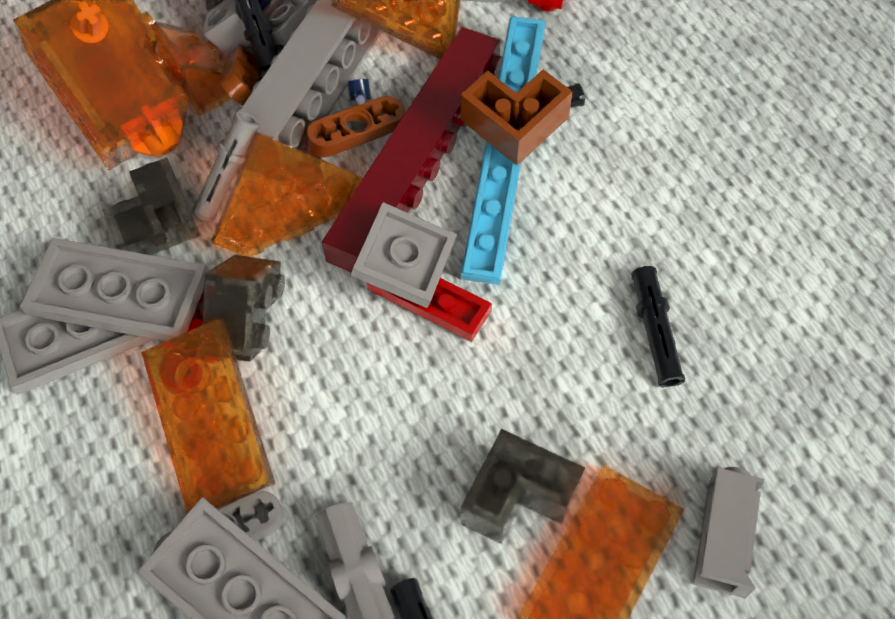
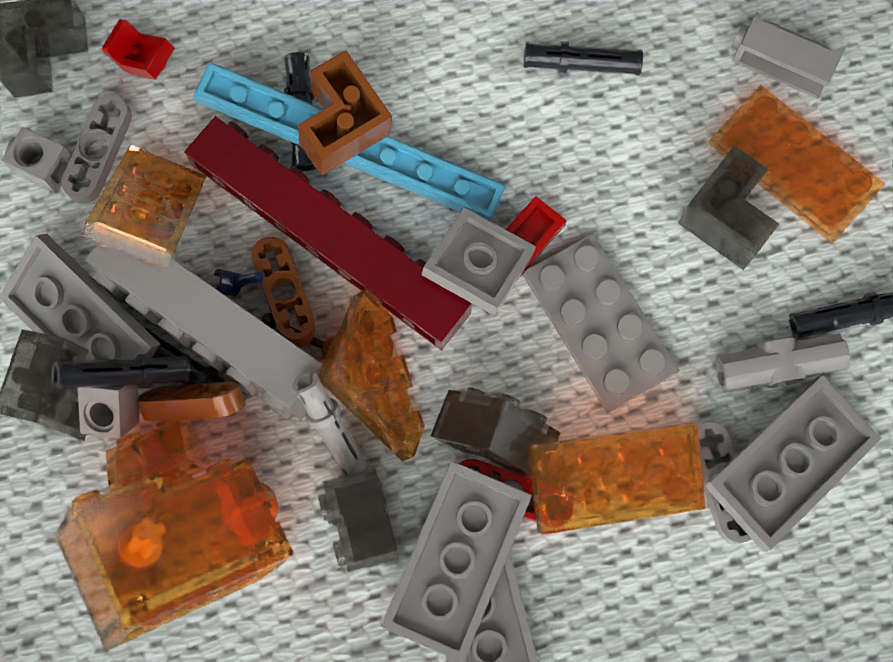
camera: 80 degrees left, 15 degrees up
(374, 391) = (600, 323): none -> light grey plate

